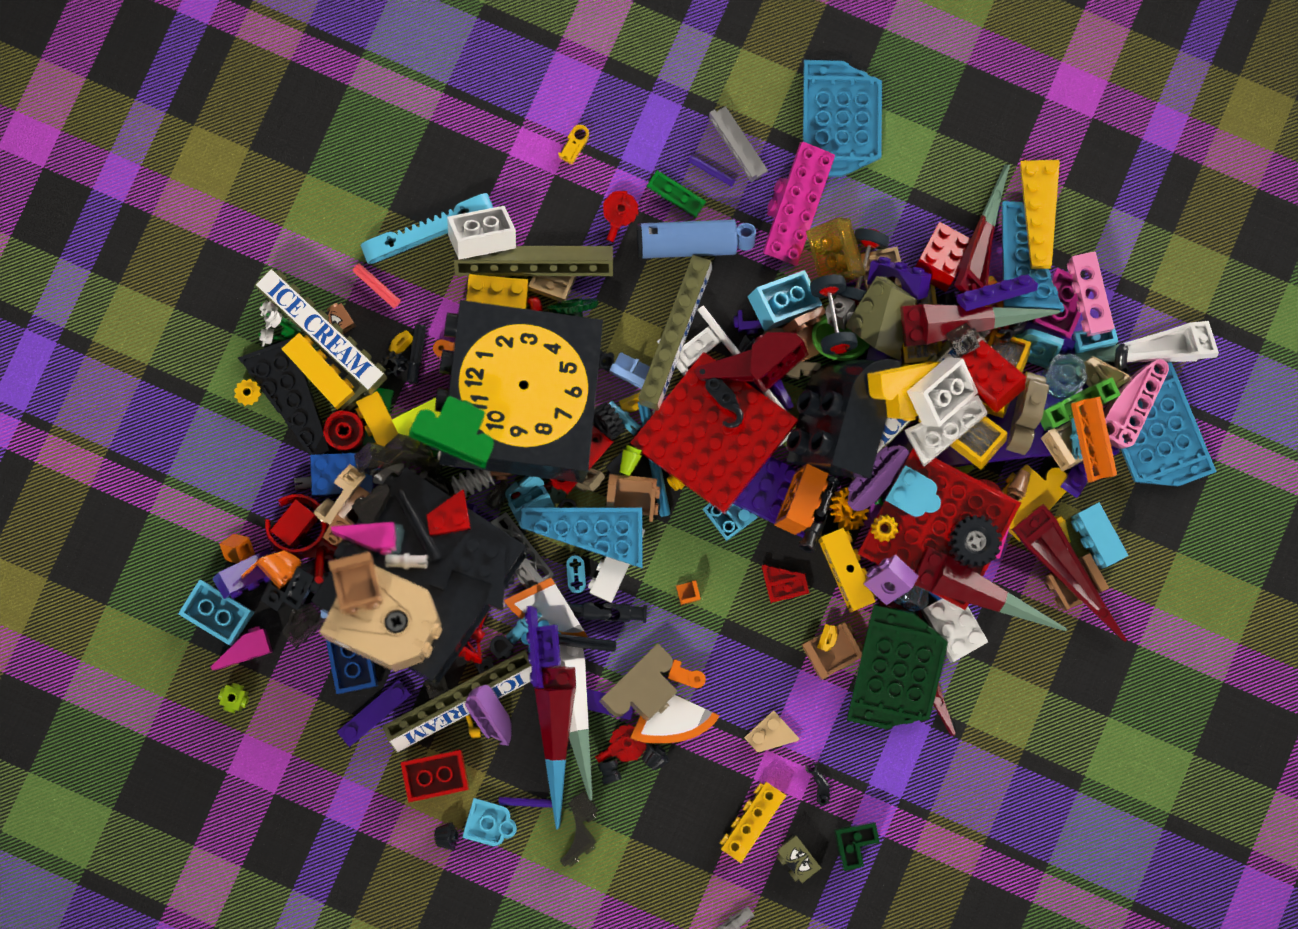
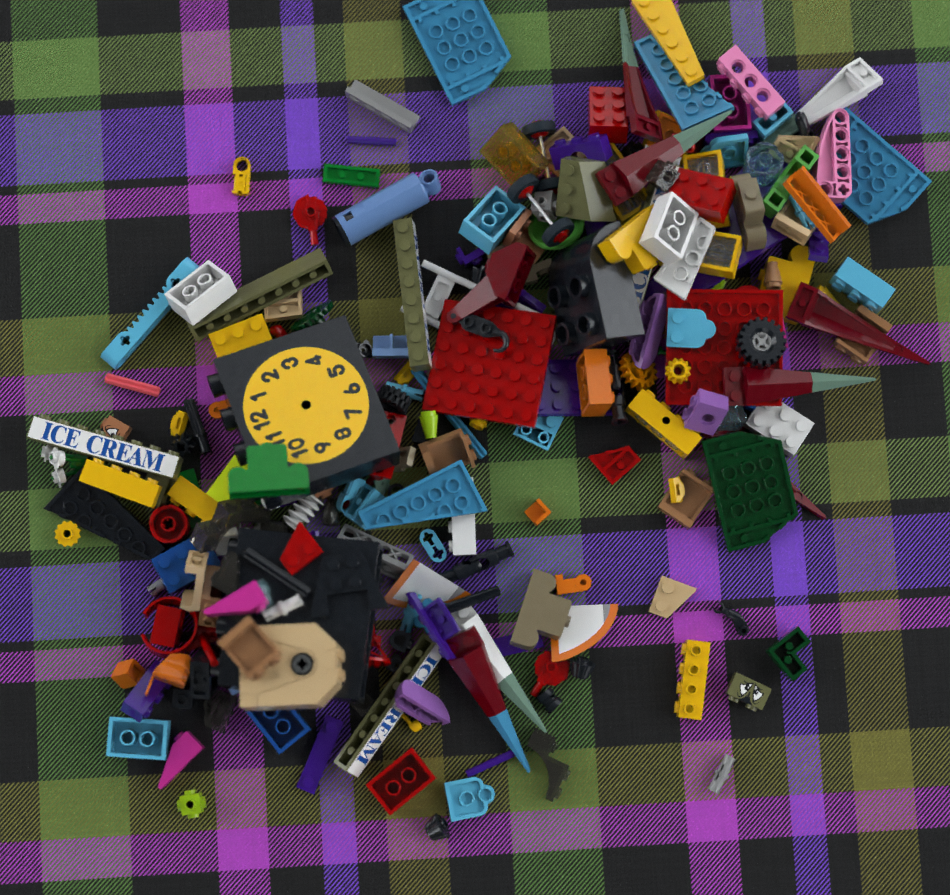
camera: 25 degrees left, 0 degrees up
(796, 203) = (459, 131): dark pink bracket -> none
(997, 292) = (670, 121): dark purple plate -> none
(1017, 329) = (700, 147): black arm -> none

